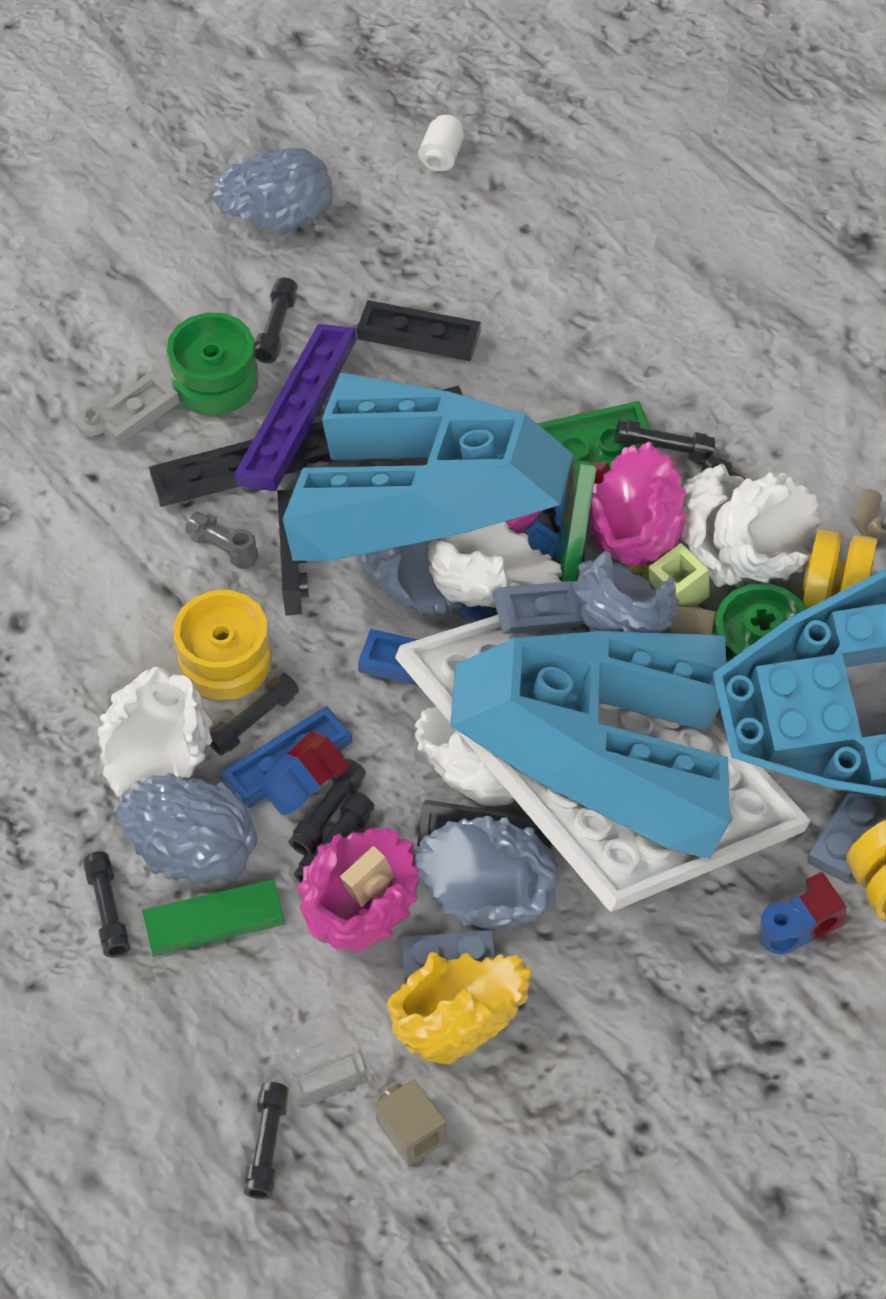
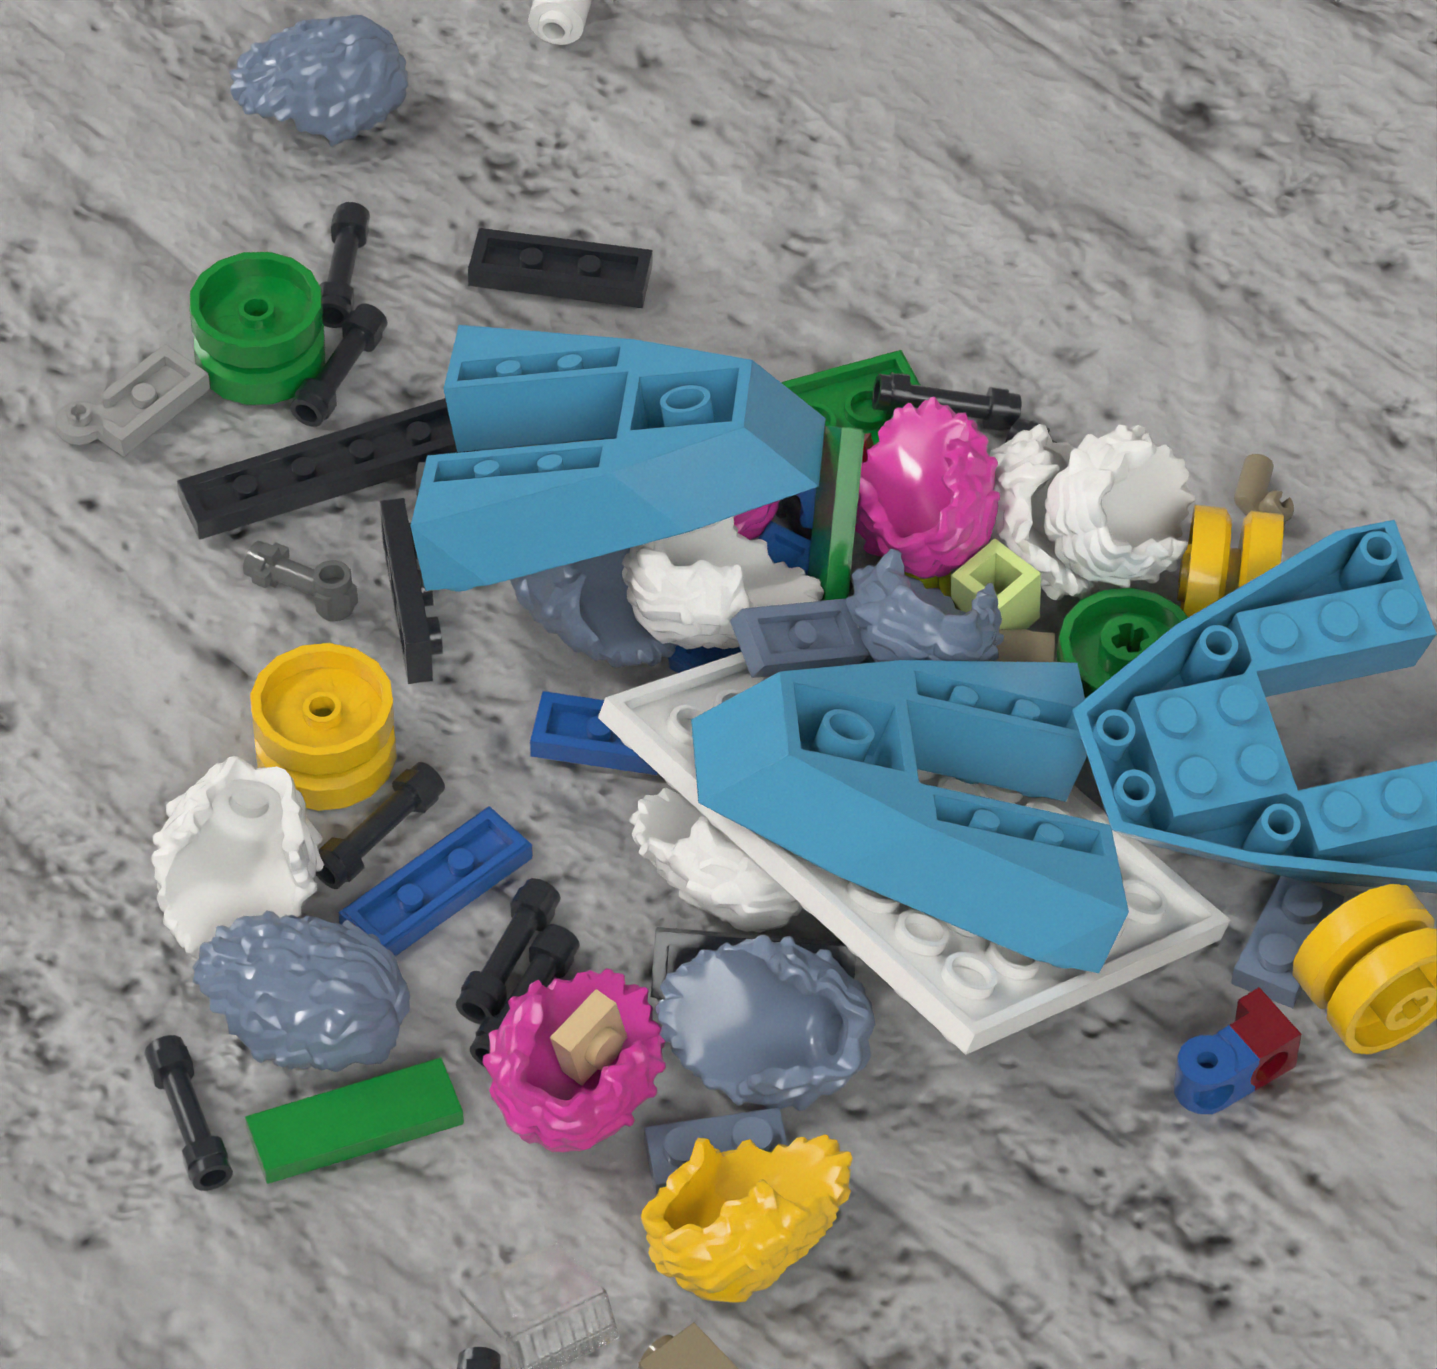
camera: 10 degrees left, 5 degrees down
(247, 413) = (317, 397): none -> black bar
(295, 408) = (392, 384): dark purple plate -> none
(302, 772) = (467, 900): leg -> none

